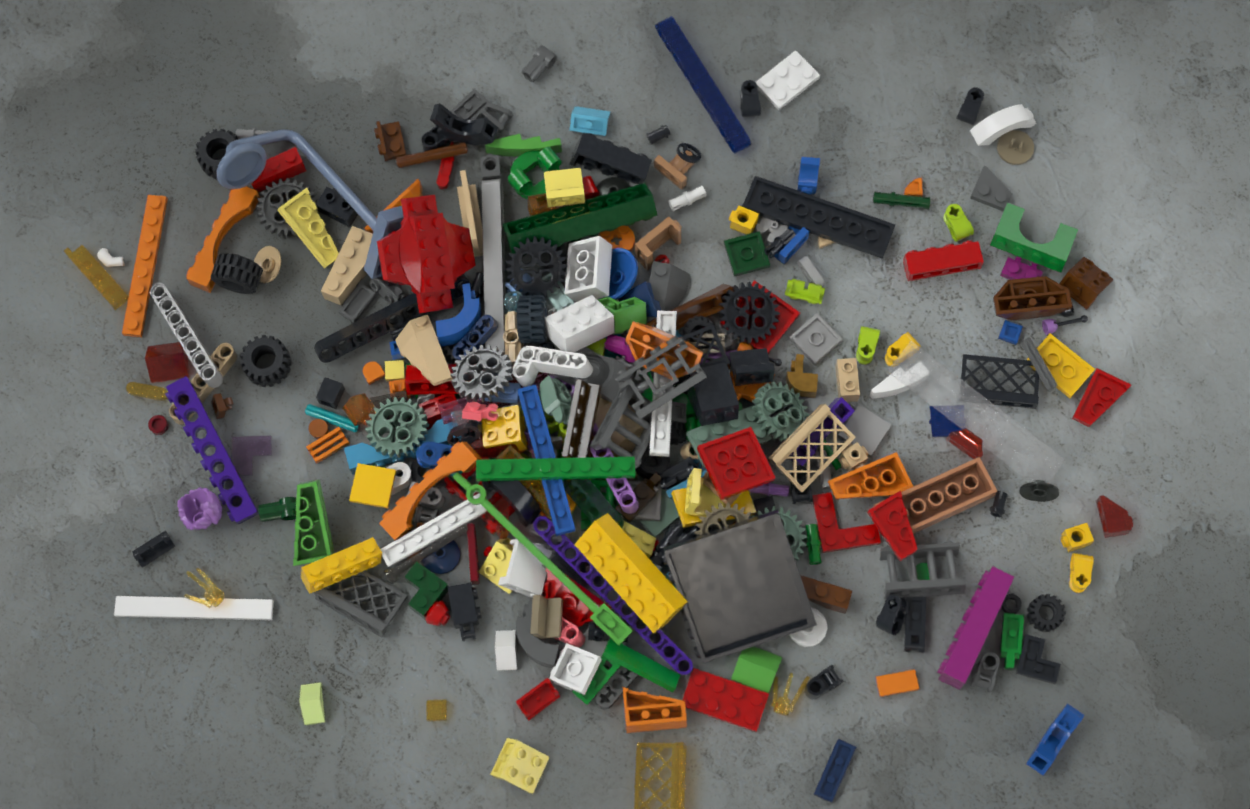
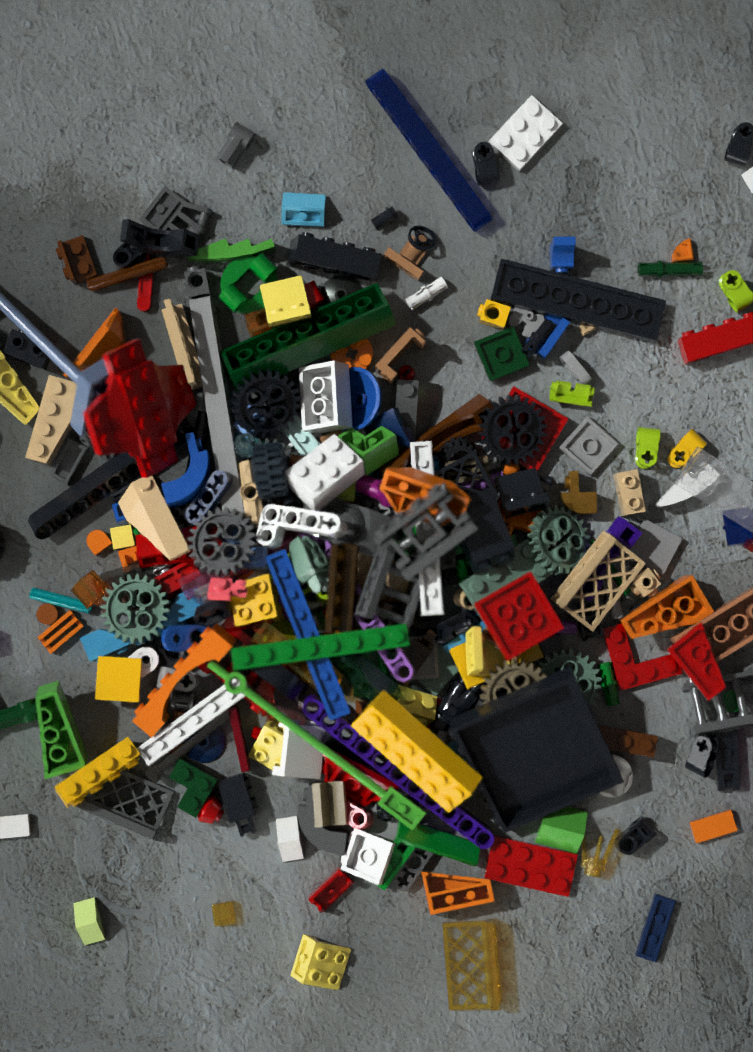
camera: 10 degrees left, 15 degrees up
(330, 393) = (54, 573): black panel -> none

